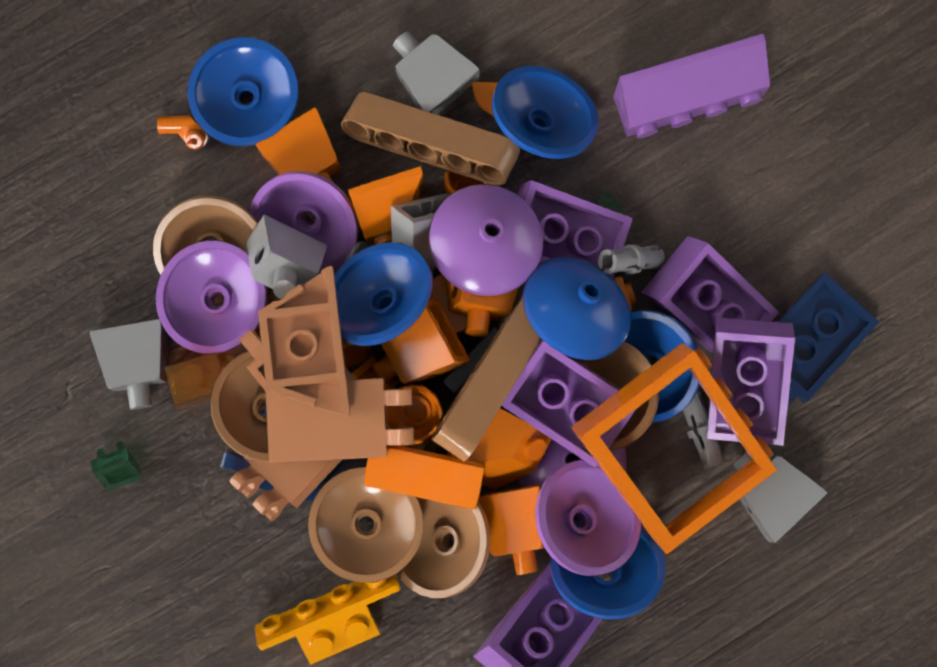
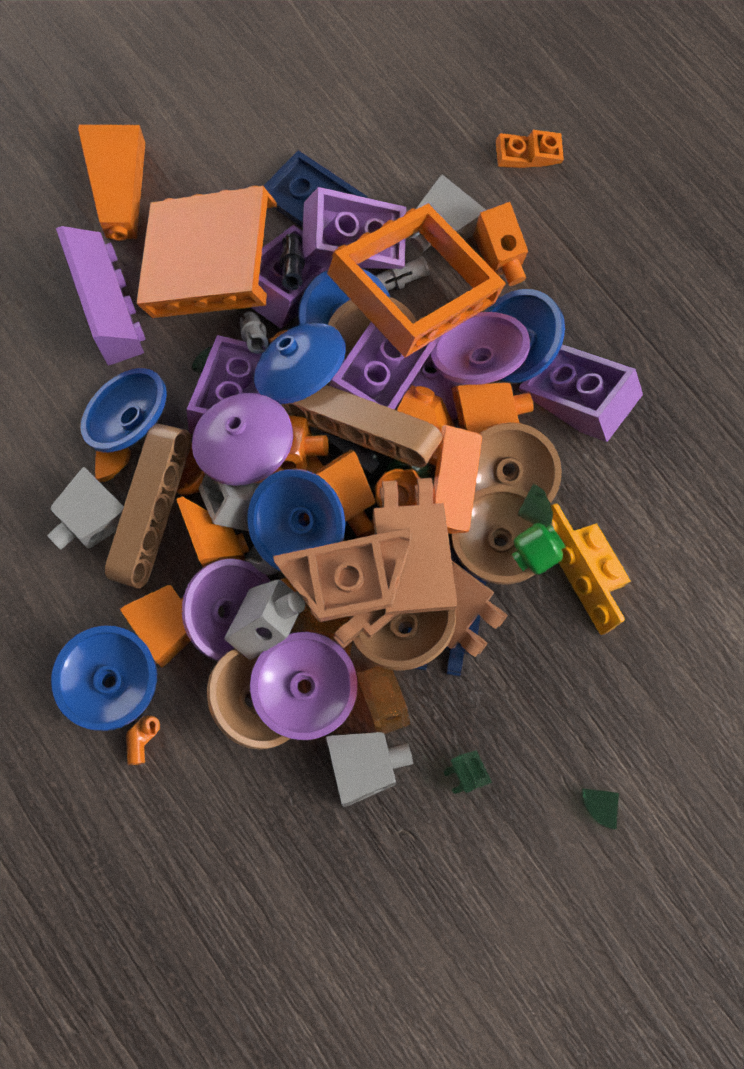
camera: 90 degrees left, 10 degrees down
(71, 604) = (601, 806): none -> clear green tile
(337, 560) = (538, 548): none -> green head
(390, 565) = (536, 507): none -> clear green tile
(712, 305) = (292, 262): none -> black pin
(737, 205) = (204, 253): none -> orange panel
(744, 551) = (502, 242): none -> orange torso
(854, 103) = (115, 173): none -> orange slope
(868, 606) = (536, 150): none -> orange slope

